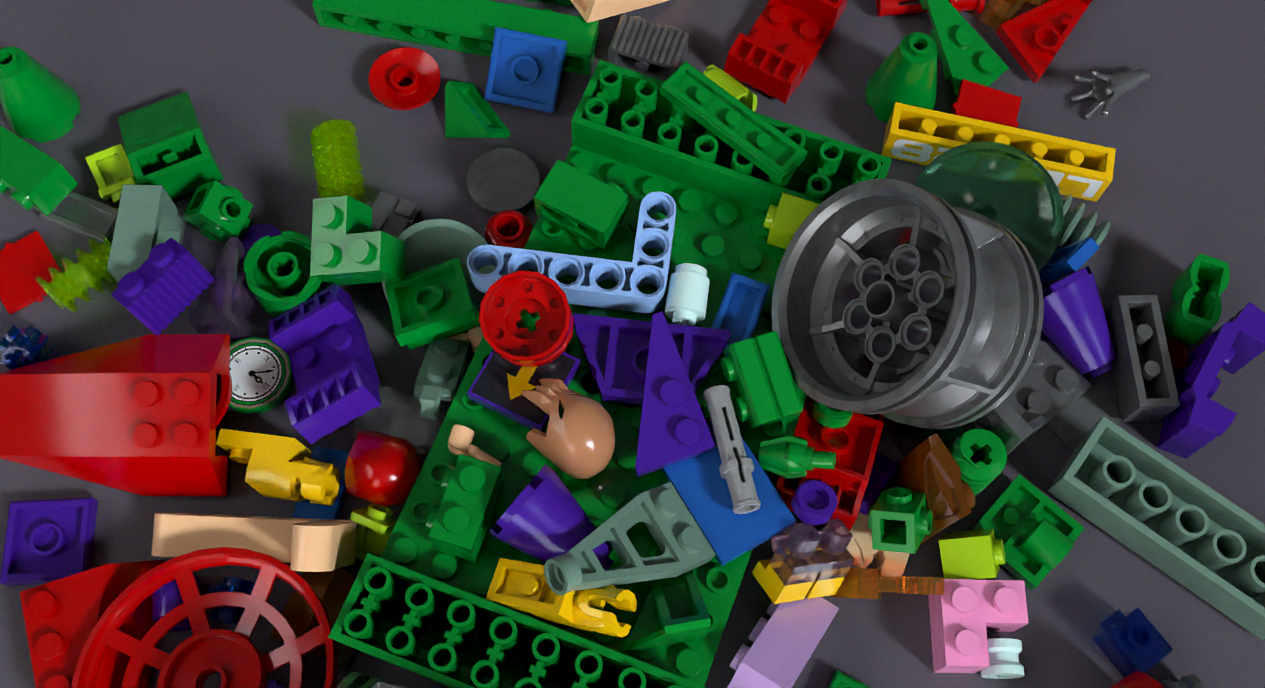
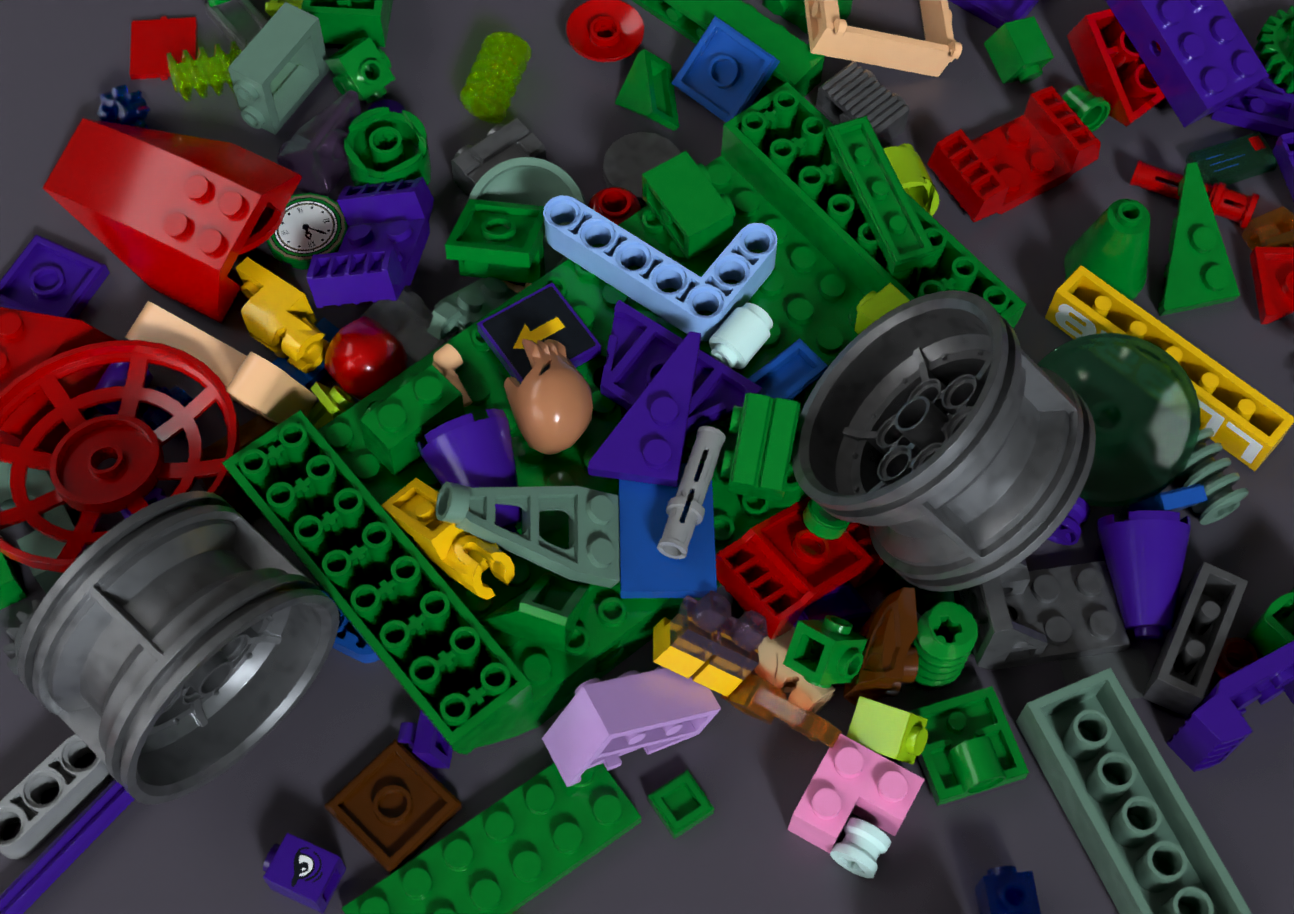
camera: 30 degrees right, 5 degrees down
(163, 285) = (267, 103): dark purple brick -> none
(347, 249) = (454, 150): green brick -> none
(503, 312) = (545, 264): red wheel -> none
(792, 457) = (749, 531): green piece -> none
(814, 502) = (744, 582): dark purple tile -> none
(986, 104) = (1190, 318): red piece -> none

